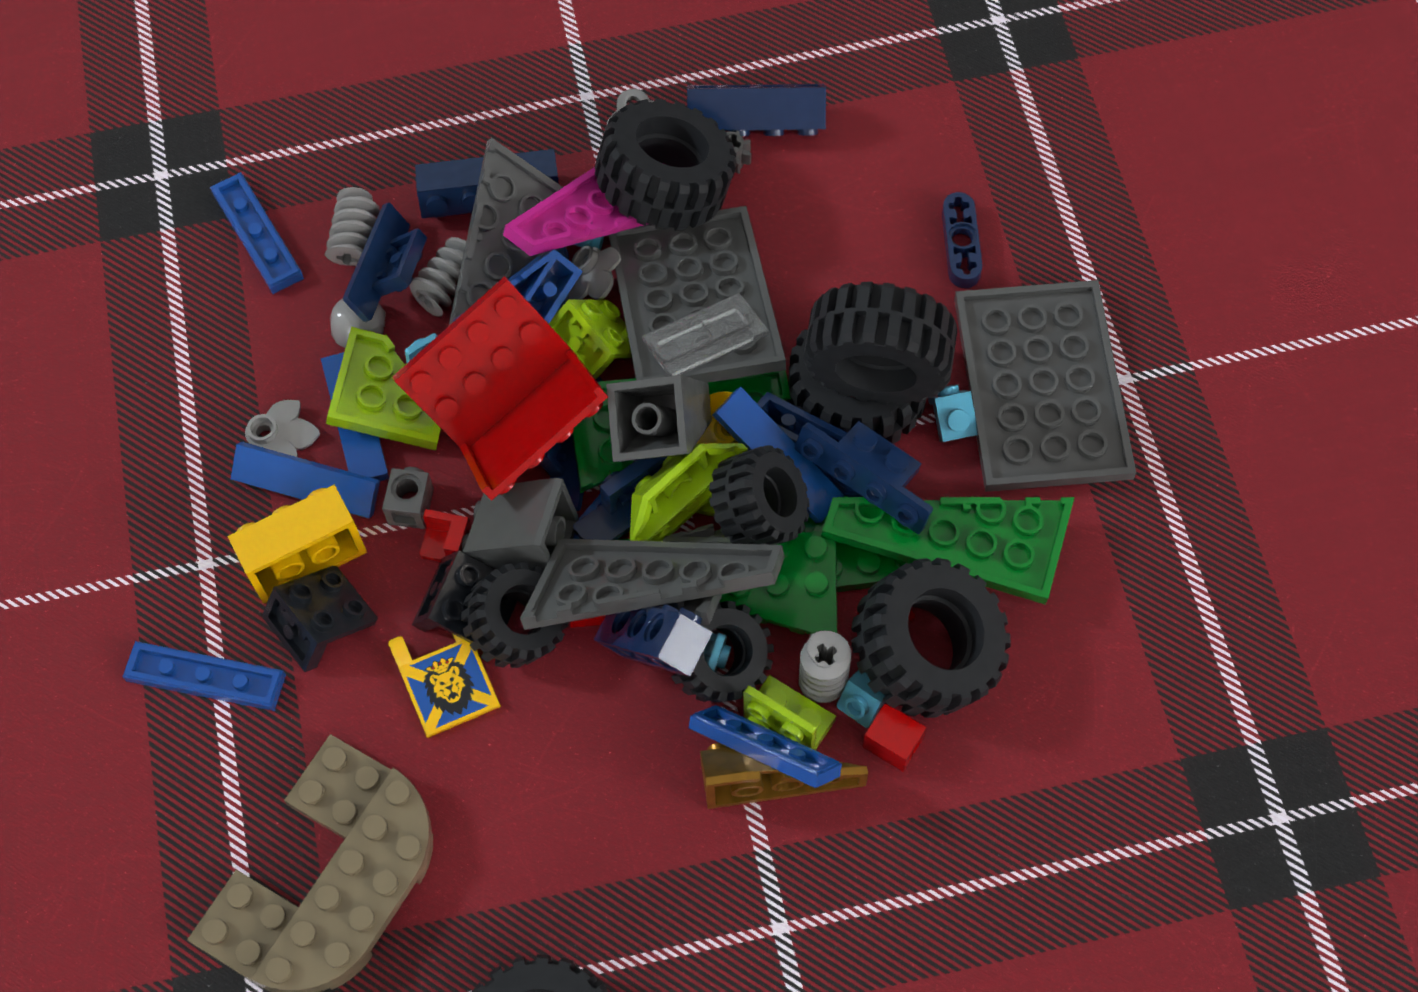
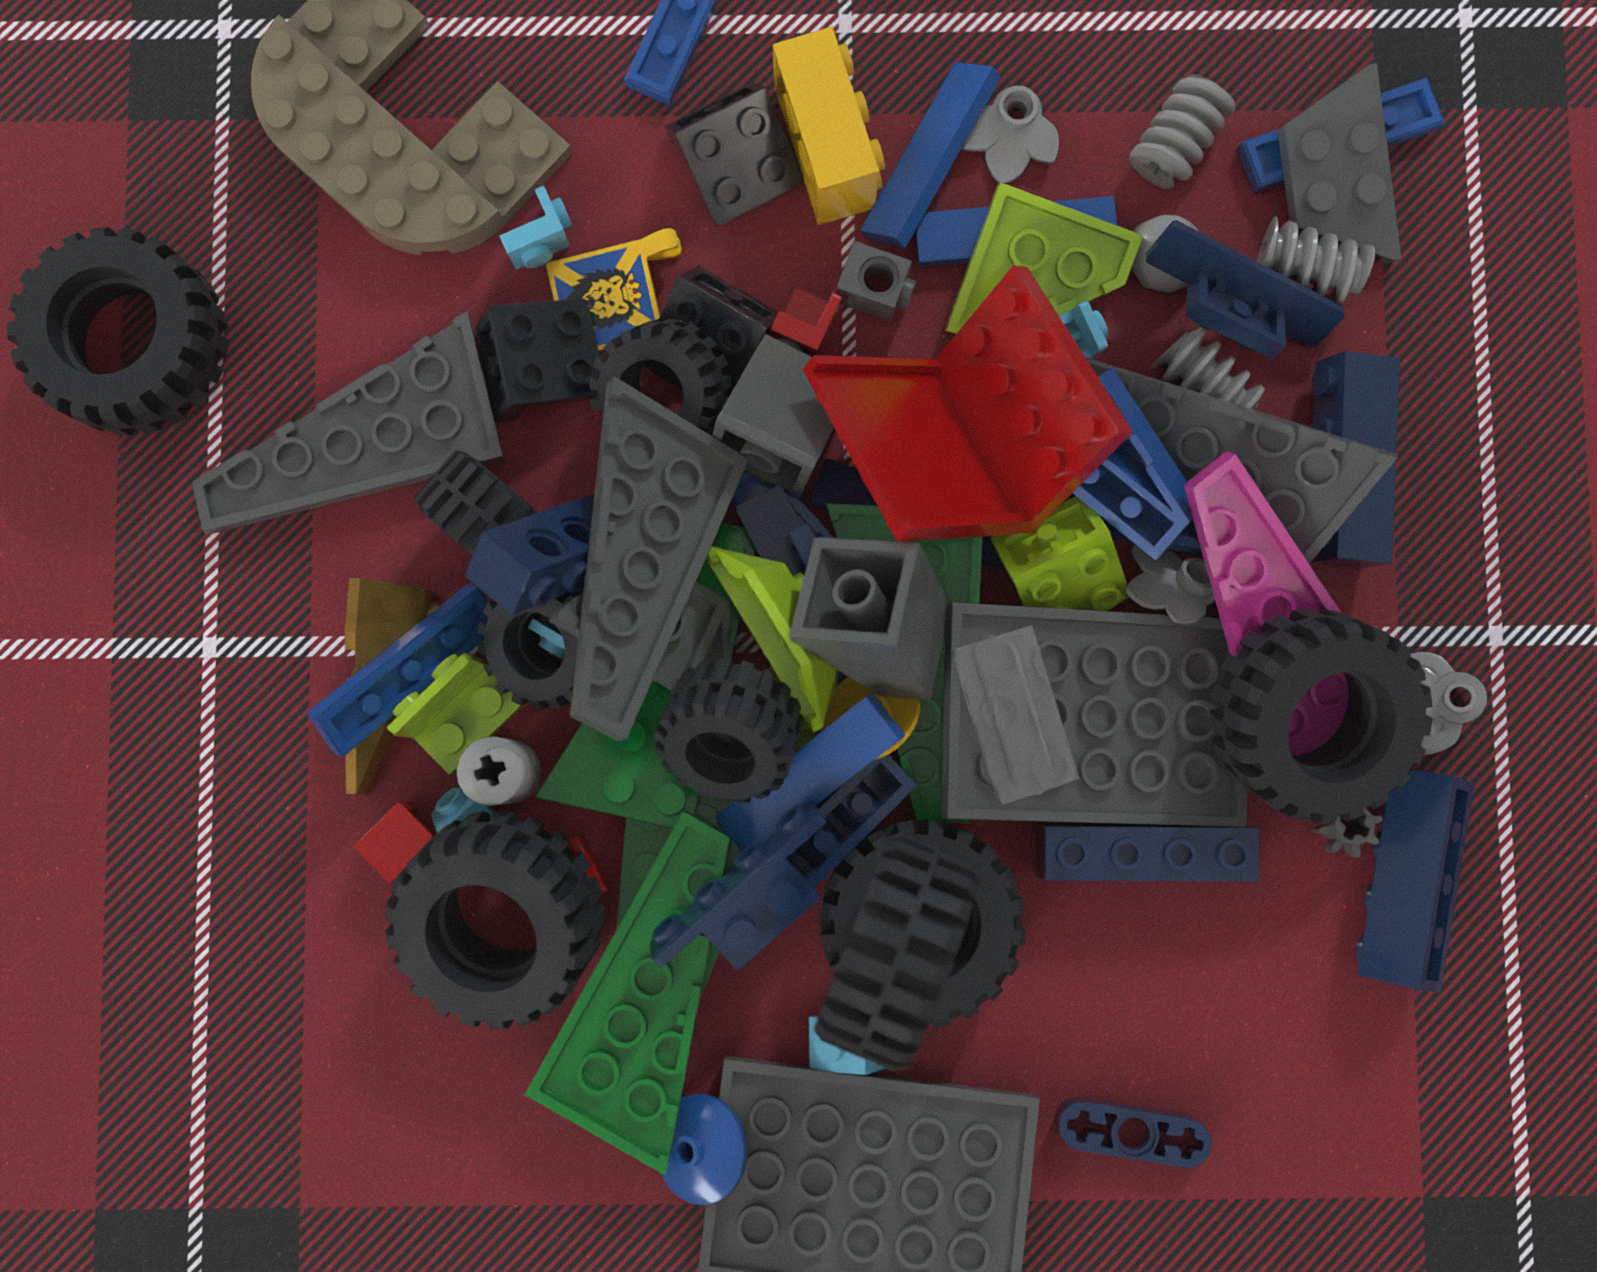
camera: 100 degrees right, 20 degrees up
(268, 321) = (1181, 130): none -> light grey piece
(281, 224) = (1341, 167): none -> dark grey wing
(399, 728) = (539, 239): none -> medium azure bracket
(505, 721) = (537, 354): none -> black bracket
(581, 823) = (365, 438): none -> dark grey wing
(637, 714) = (468, 500): none -> black tyre
(779, 258) = (1147, 853): none -> dark blue brick
(1050, 468) = (717, 1151): none -> blue dish

